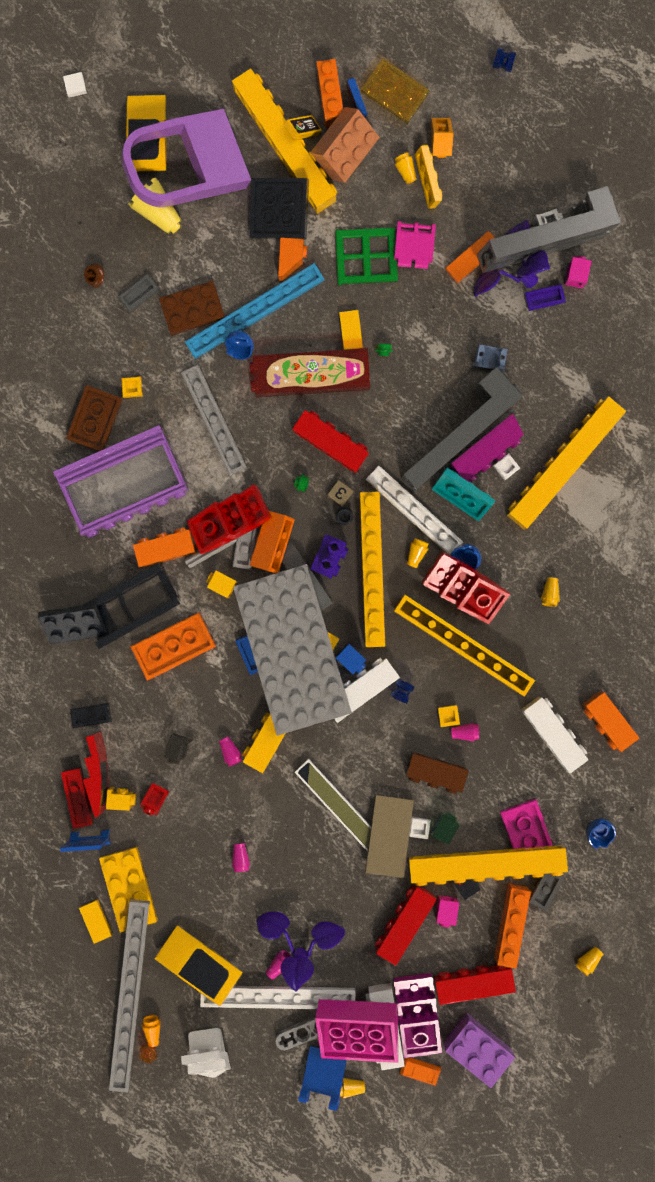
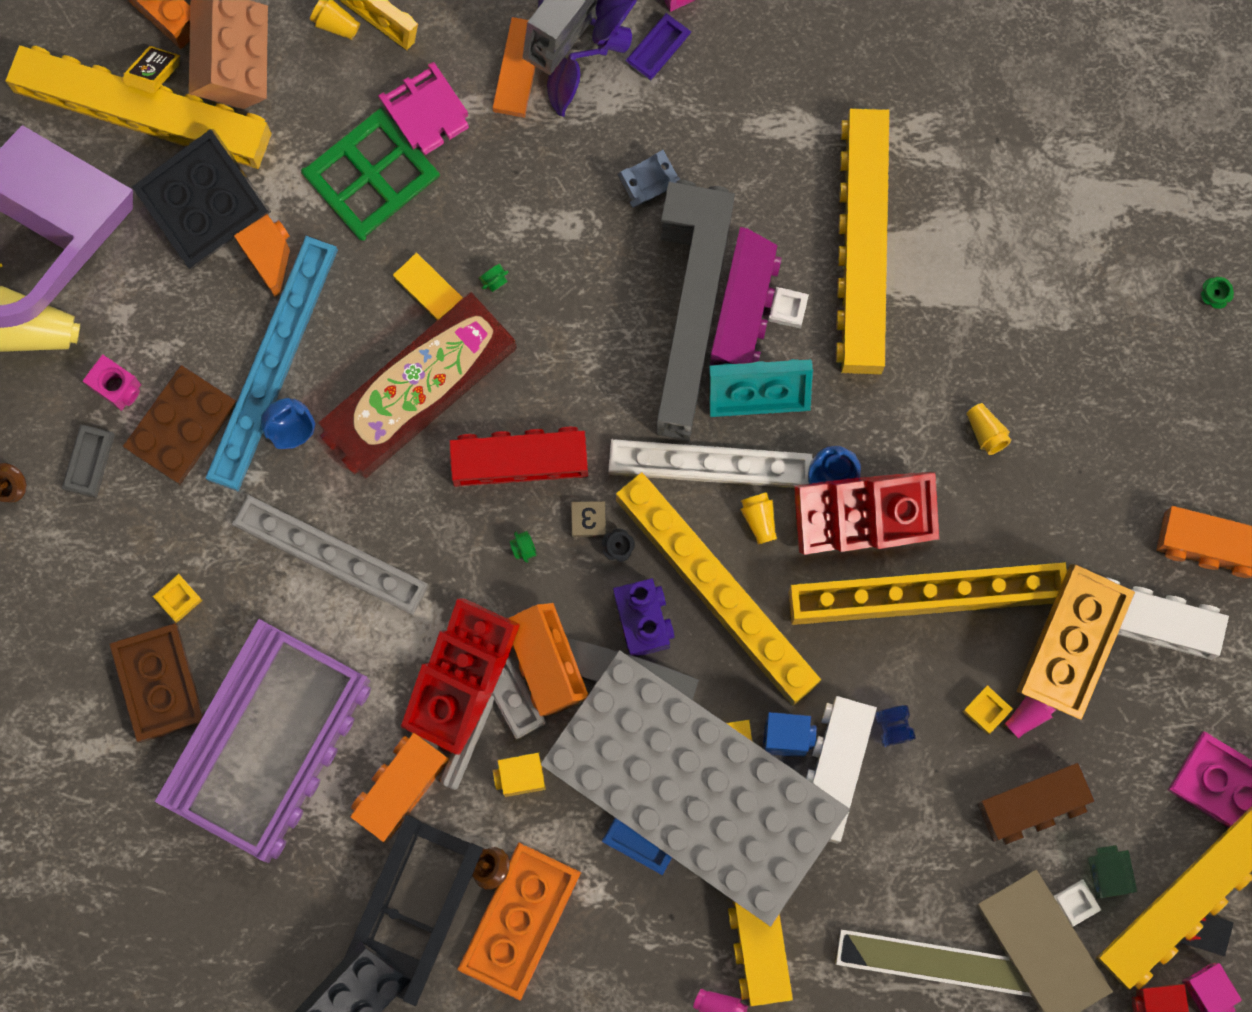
camera: 35 degrees left, 10 degrees down
(171, 258) = (104, 372): none -> dark pink brick
(178, 614) = (491, 868): none -> reddish brown hat
(510, 718) = (1075, 641): none -> plate

